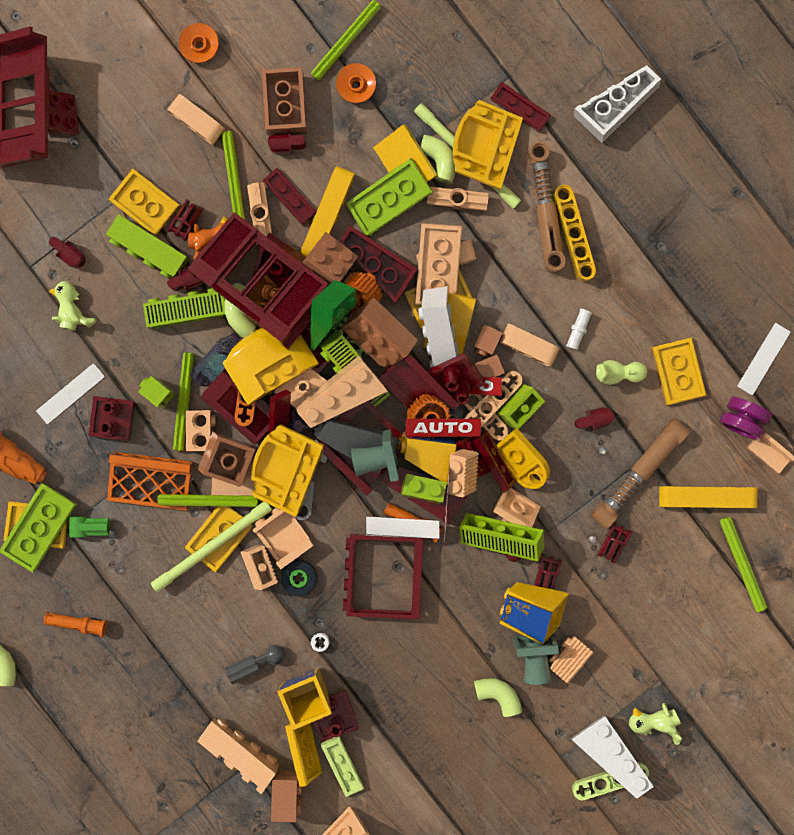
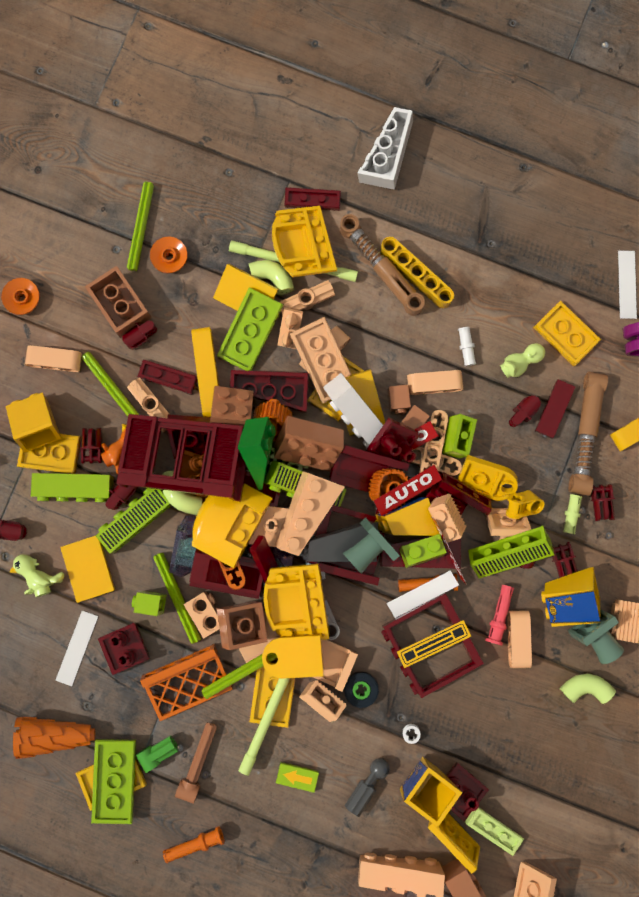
camera: 35 degrees left, 5 degrees down
(100, 572) = (188, 786): none -> nougat axle
(119, 329) = (87, 568): none -> yellow tile
(144, 167) = (32, 422): none -> yellow slope
(198, 619) = (297, 777): none -> lime tile
(258, 514) = (296, 657): none -> yellow tile
(386, 576) = (434, 644): none -> sticker
(429, 213) = (290, 322): none -> light nougat tile
(454, 594) = (498, 623): none -> coral pin
(464, 617) = (519, 639): none -> light nougat beam
(541, 502) = (524, 504): none -> yellow piece
(580, 537) = (572, 514): none -> yellowish green pin
(624, 433) = (555, 408): none -> dark red tile

